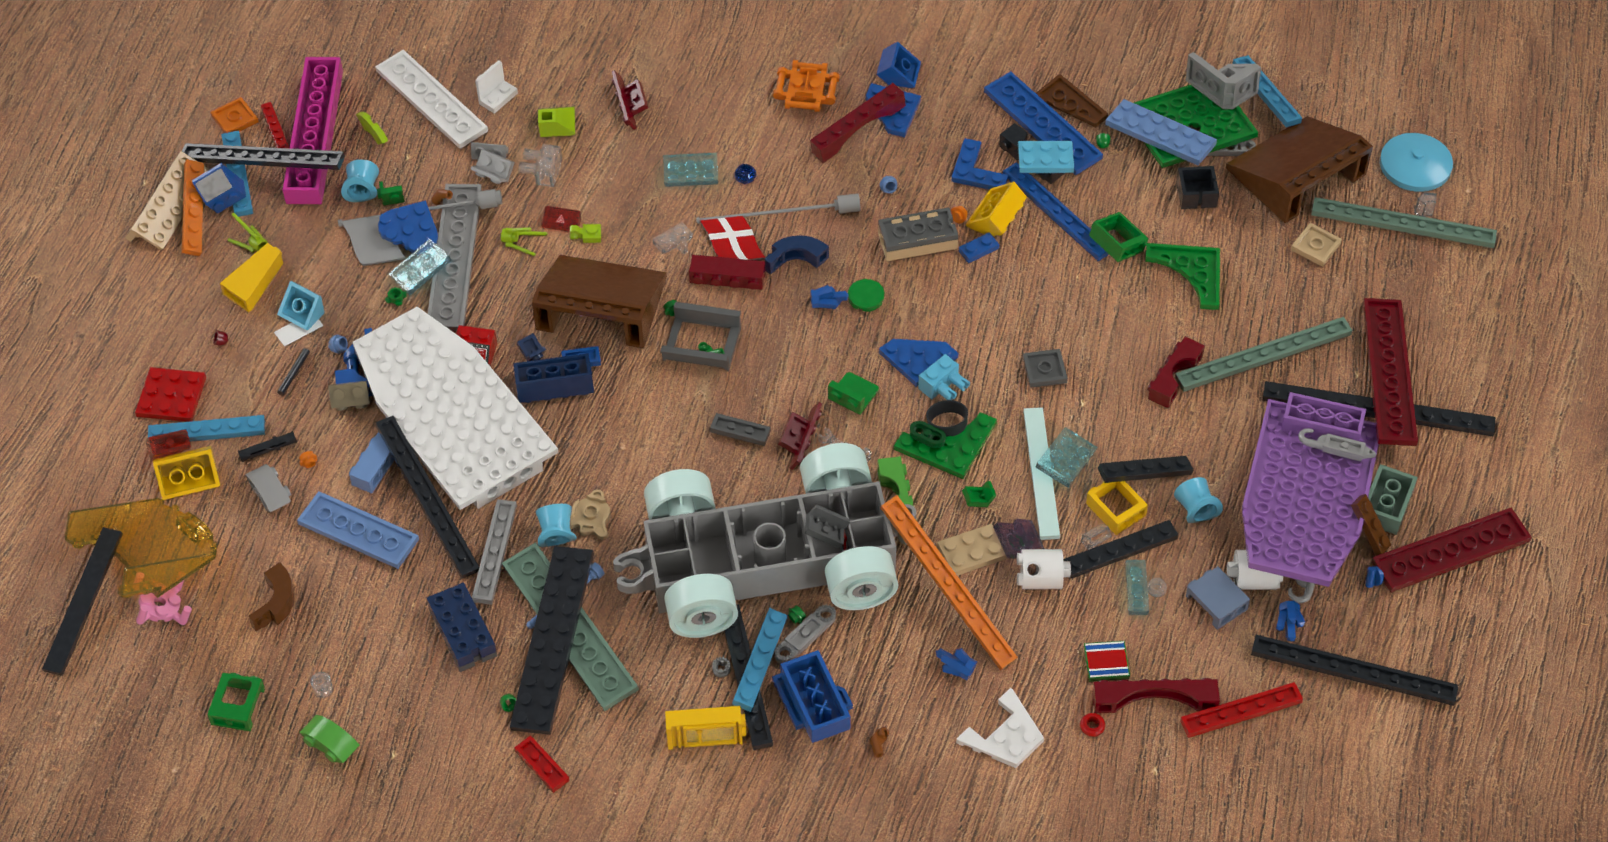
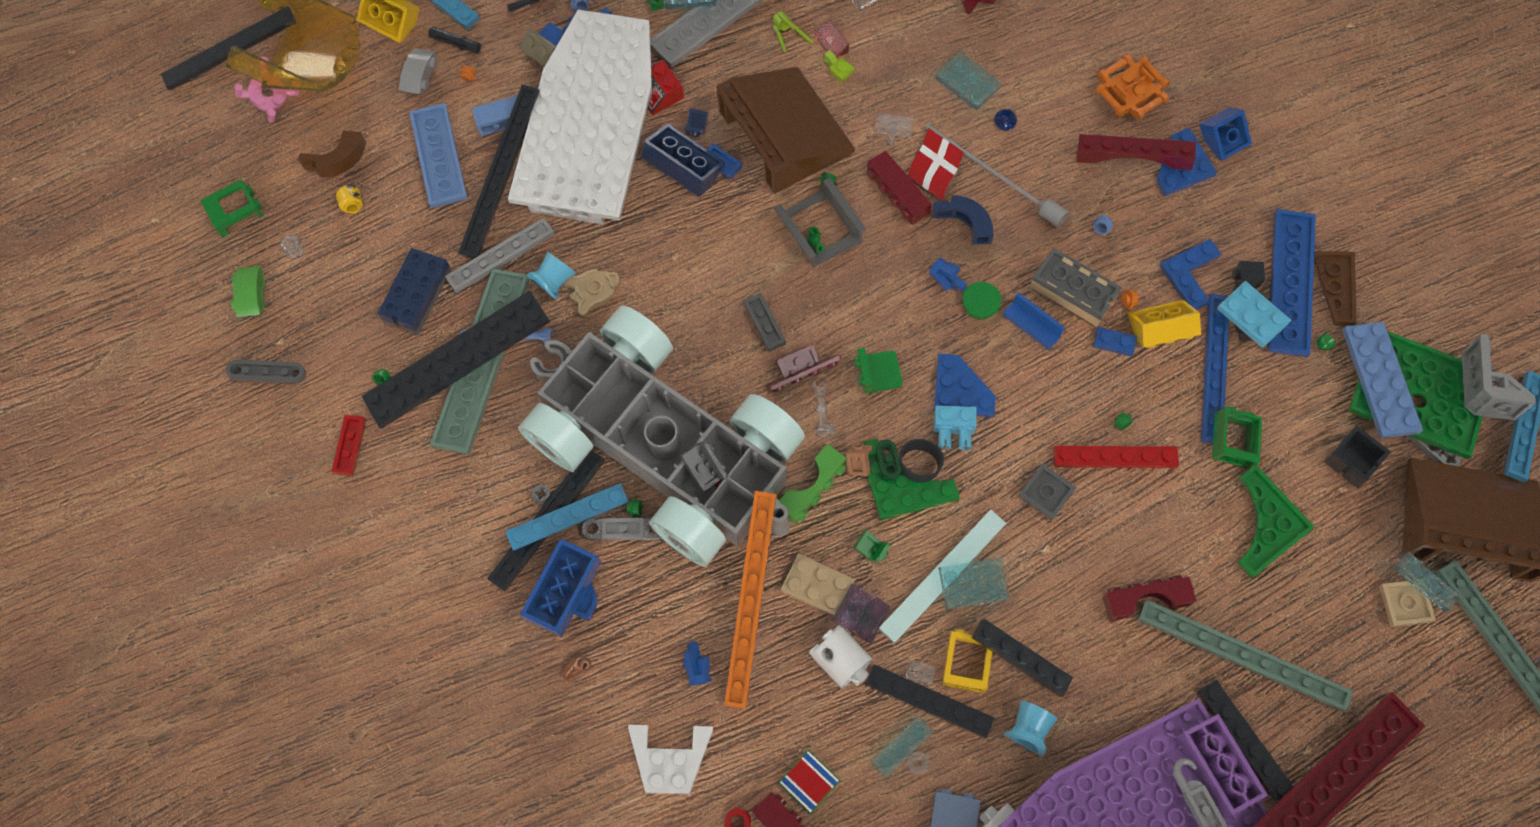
camera: 50 degrees right, 15 degrees up
(327, 614) = (349, 199): none -> yellow head
(413, 778) = (266, 371): none -> dark grey plate
(705, 727) = (468, 530): yellow door -> none
(908, 451) = (858, 460): none -> nougat bracket
(915, 277) = (1034, 321): none -> blue panel
(1040, 288) = (1123, 421): none -> green plate
(1060, 313) = (1116, 456): none -> red plate
(1313, 221) = (1426, 581): none -> clear light blue plate

